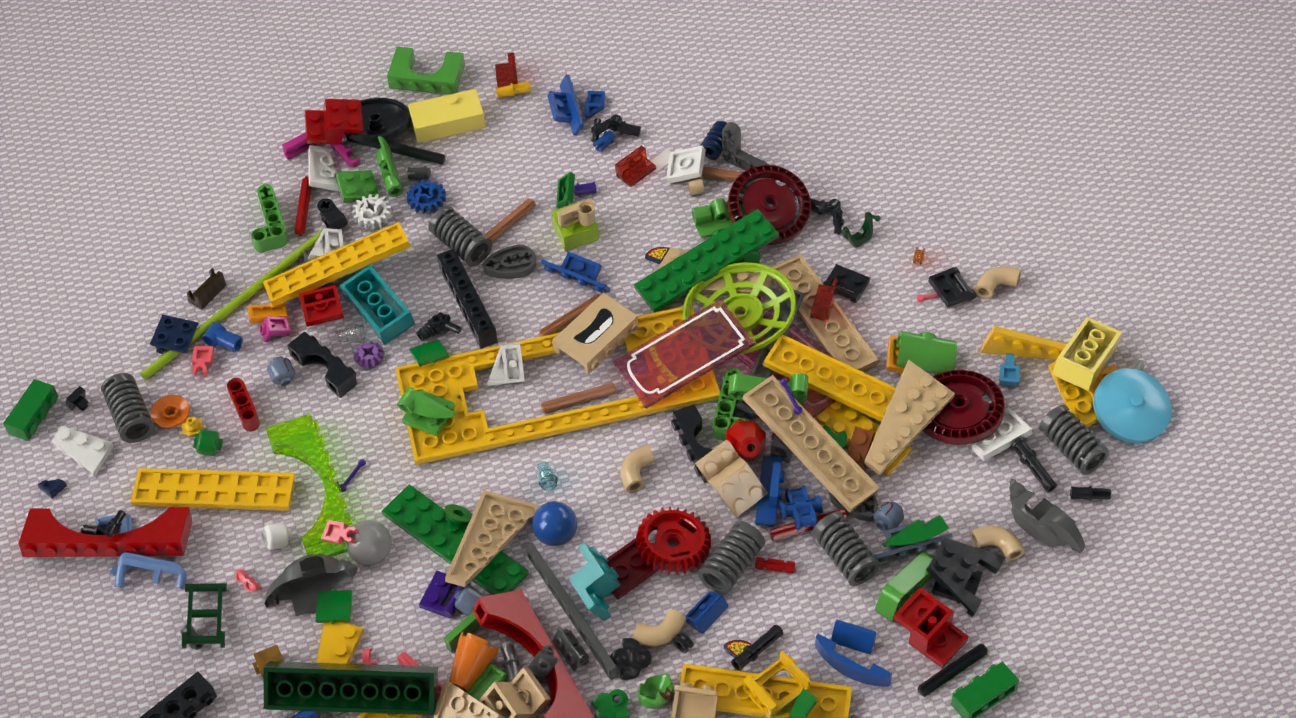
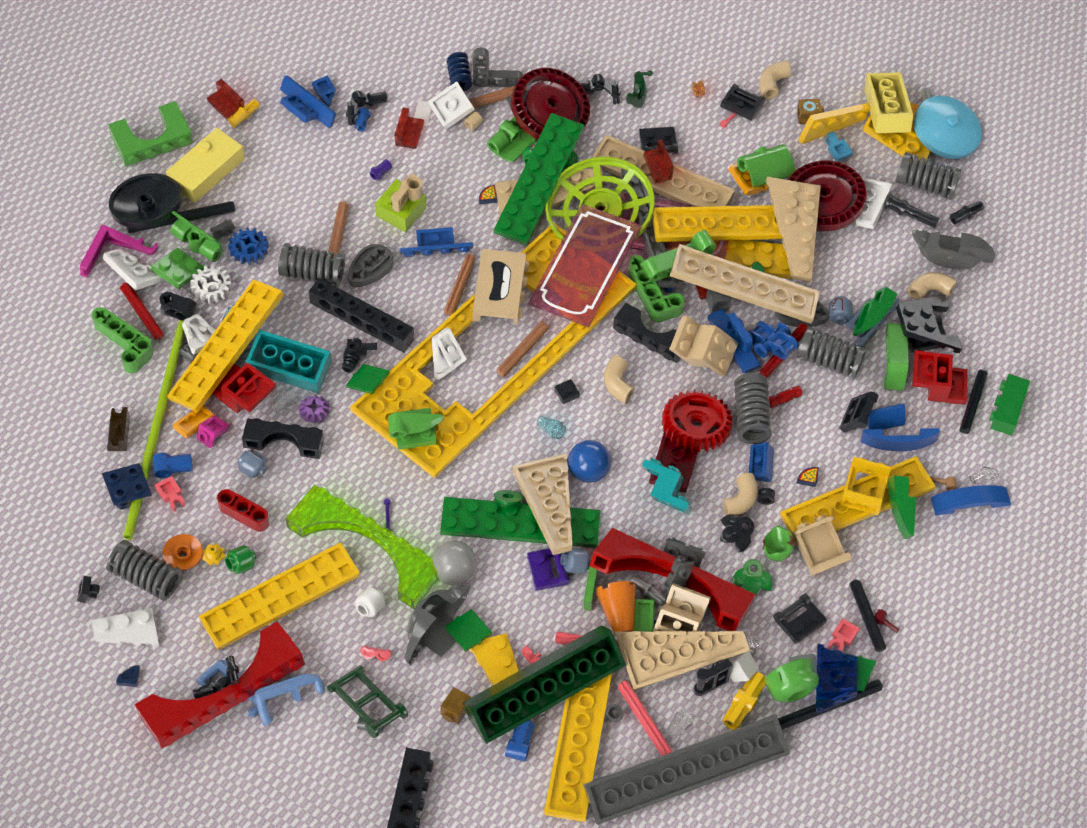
camera: 40 degrees left, 5 degrees up
(31, 410) = (52, 622): green brick -> none
(333, 121) = (115, 220): red bracket -> none
(336, 532) = (428, 567): coral plate -> none
(565, 190) = (374, 186): green tile -> none
(572, 612) = (661, 521): dark grey tile -> none
(586, 454) = (566, 391): none -> black plate
(747, 439) = (692, 305): red cone -> none
(751, 652) = (824, 472): black pin -> none
(797, 409) = (718, 262): dark purple hinge -> none
(828, 615) = (858, 412): none -> black plate
(860, 445) = (777, 264): dark orange plate -> none
(1009, 321) = (808, 107): none -> pearl gold brick

